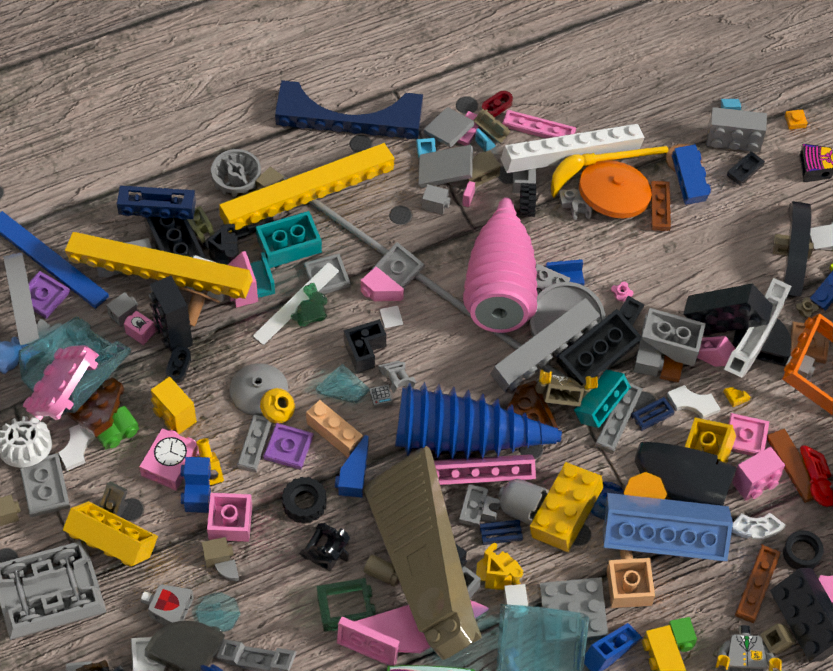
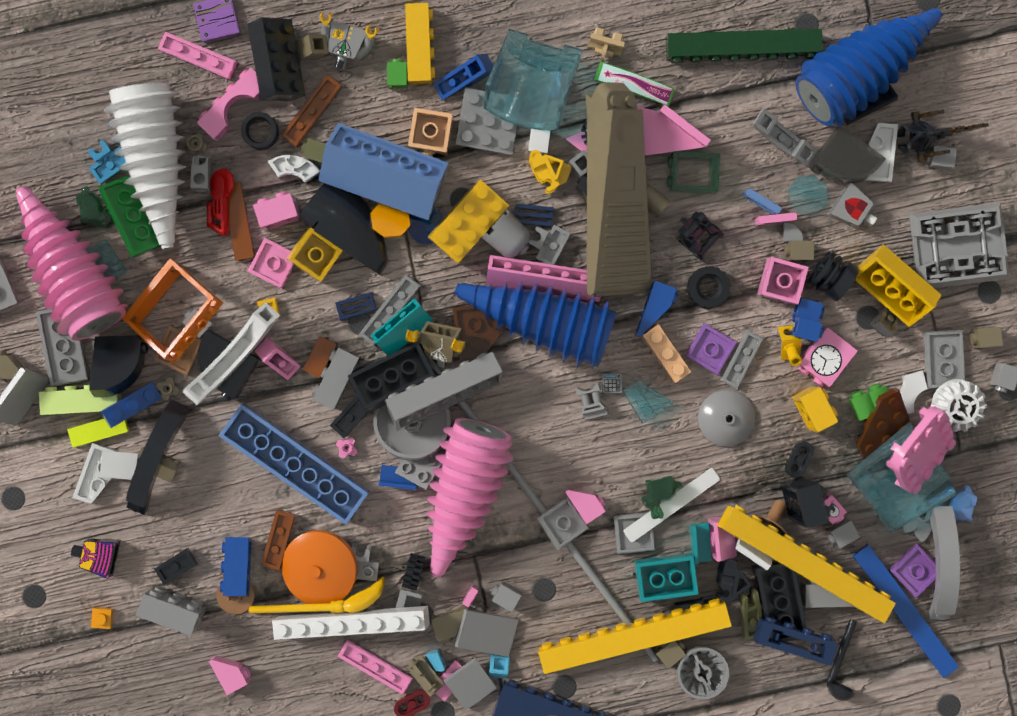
camera: 170 degrees left, 30 degrees up
(102, 182) = (836, 689): none -> black piece
(177, 531) = (833, 275): none -> black wheel
(248, 577) = (773, 219): none -> bright pink tile
(266, 591) = (762, 202): none -> medium blue tile
(272, 410) = (720, 397): yellow piece -> none
(361, 343) = (622, 440): black brick -> none
(391, 316) = (580, 471): white sticker -> none
(661, 262) = (294, 463): none -> medium blue brick
(667, 97) = (230, 673): none -> bright pink slope
(674, 335) = (314, 375): light grey slope -> none
(700, 404) = (305, 304): white tile -> none
(729, 309) = (253, 384): black brick -> none
(731, 104) = (165, 649): medium azure slope -> none
(742, 542) = (313, 150): none -> olive brick

